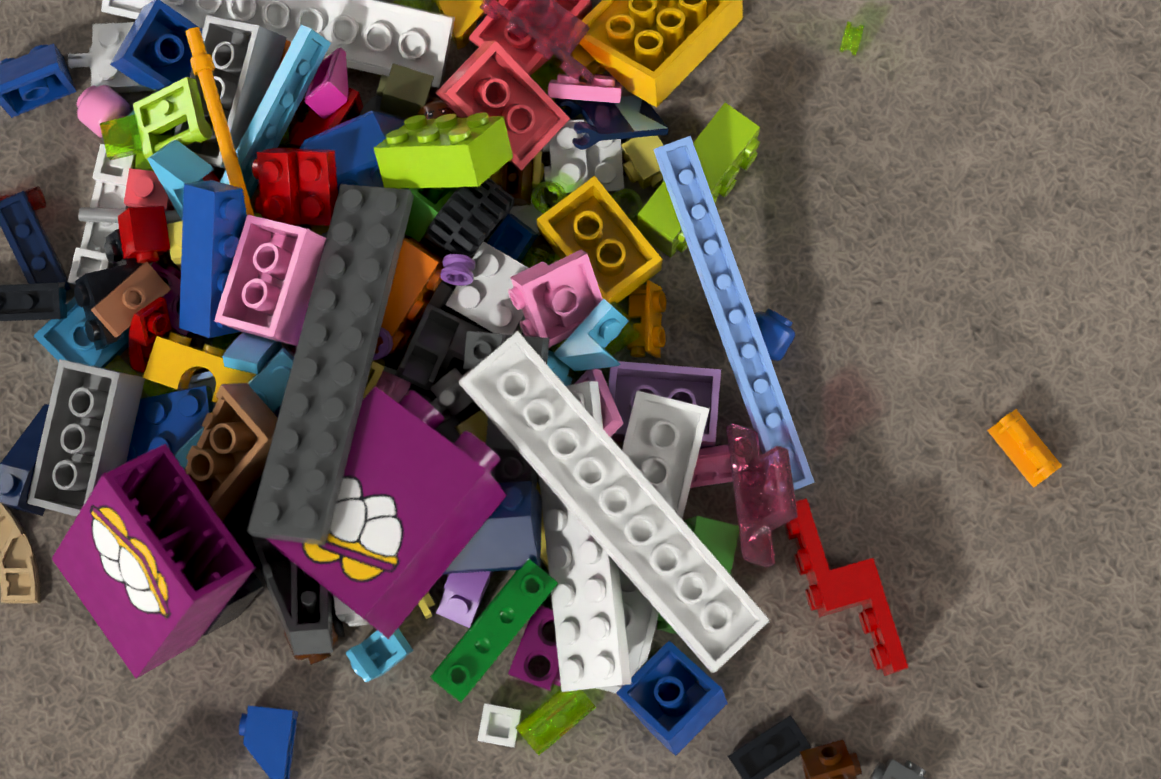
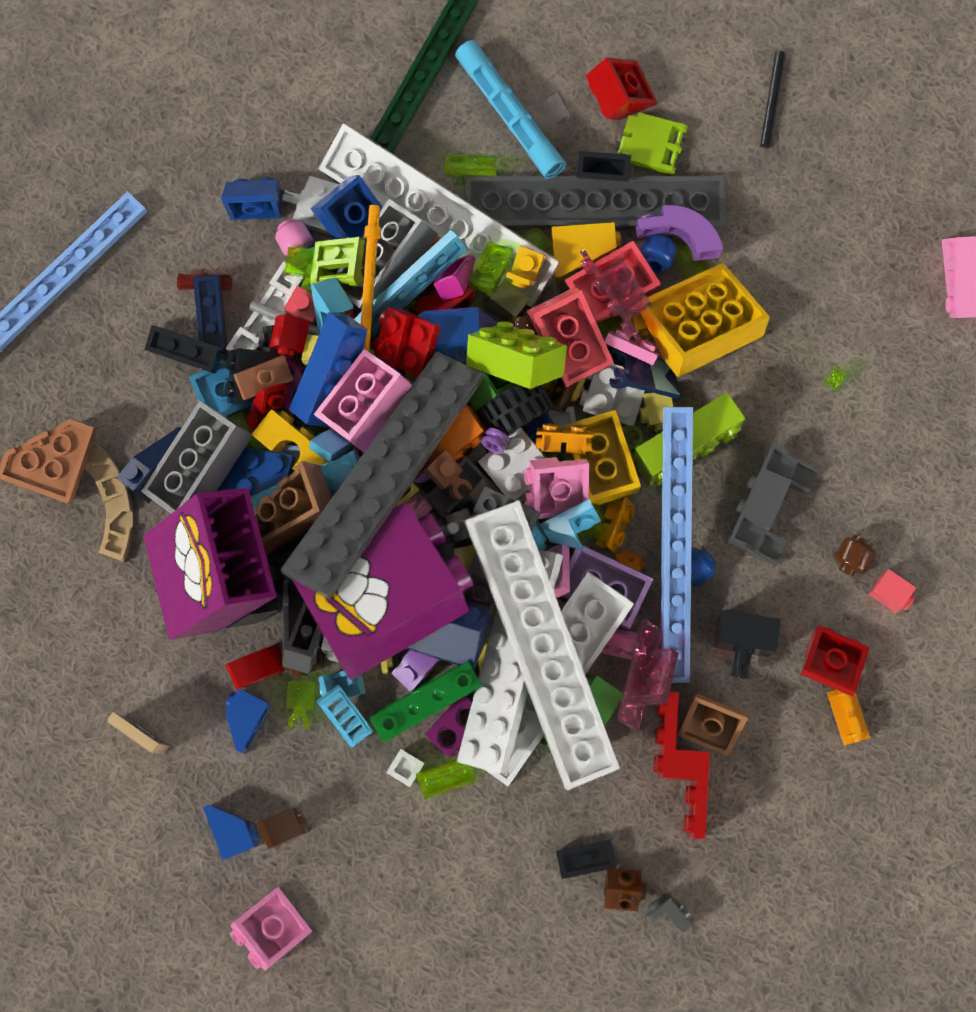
camera: 20 degrees right, 0 degrees up
(260, 671) = (255, 667): none -> red slope
(332, 689) = (300, 697): none -> clear neon green plate
(369, 56) = (490, 267): none -> clear neon green plate
(410, 334) = (445, 473): none -> nougat plate
(414, 39) = (526, 267): none -> yellow bracket
(417, 701) = (354, 730): none -> medium azure slope
(529, 237) = (574, 438): none -> light orange hinge
(538, 191) = (573, 406): clear neon green bush -> none
(673, 697) = (532, 795): blue slope -> none
(683, 357) = (630, 560): none -> orange plant
(821, 215) = (766, 494): none -> dark grey bracket
(862, 523) = (712, 724): none -> medium nougat slope
(863, 398) = (746, 636): none -> black brick
(958, 247) = (855, 555): none -> reddish brown head
(983, 386) = (834, 660): none -> red plate
(1021, 275) = (893, 591): none -> coral brick

